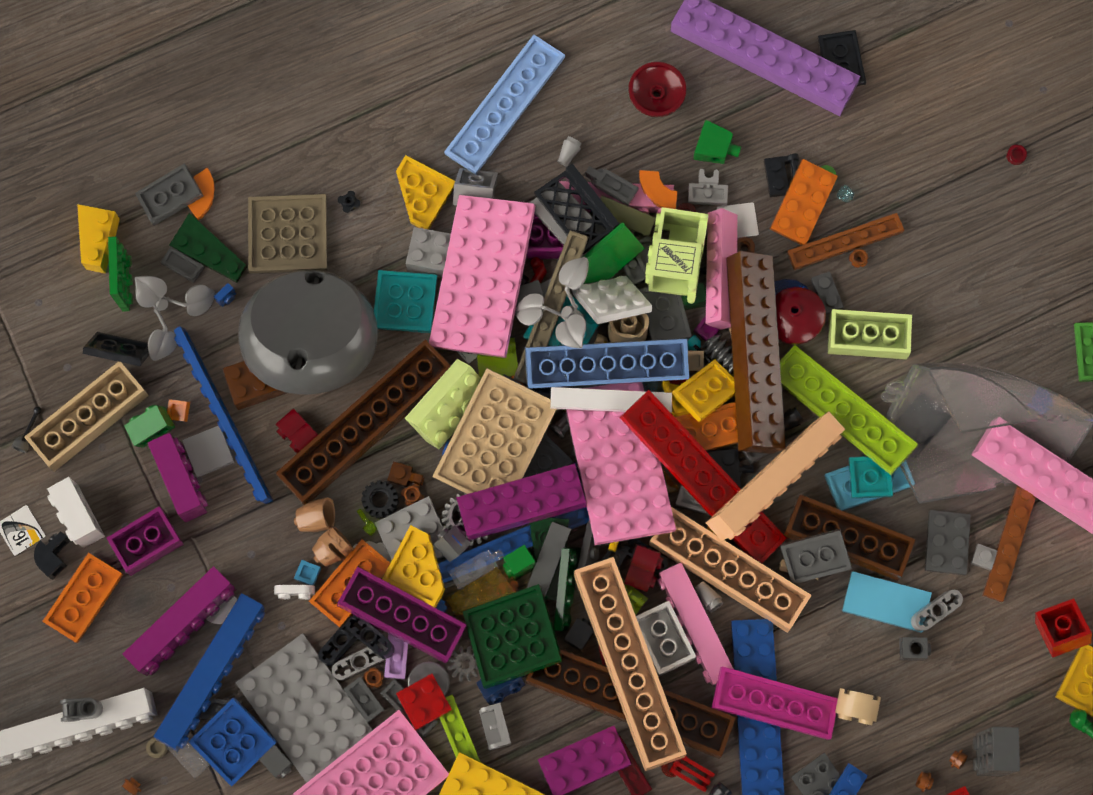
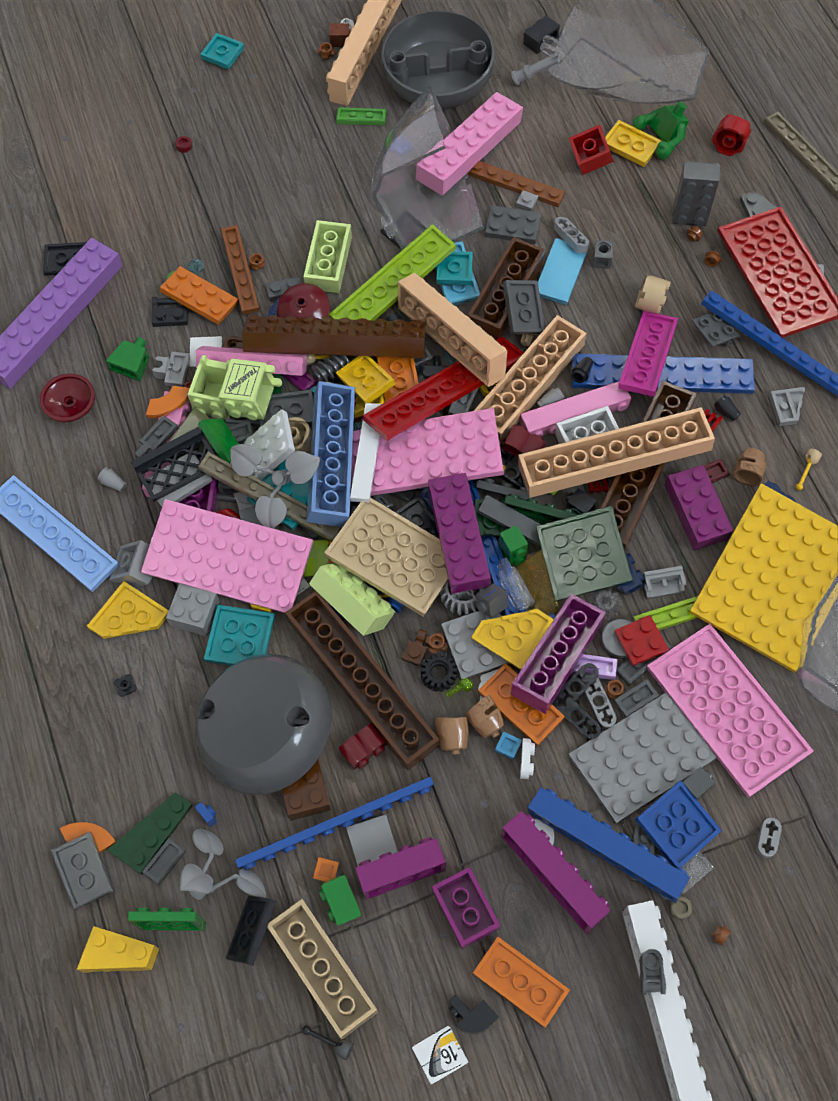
camera: 85 degrees left, 10 degrees down
(75, 513) = (430, 983): white brick -> none
(287, 233) = (148, 748): dark tan plate -> none
(744, 628) = (582, 370): none -> black cone

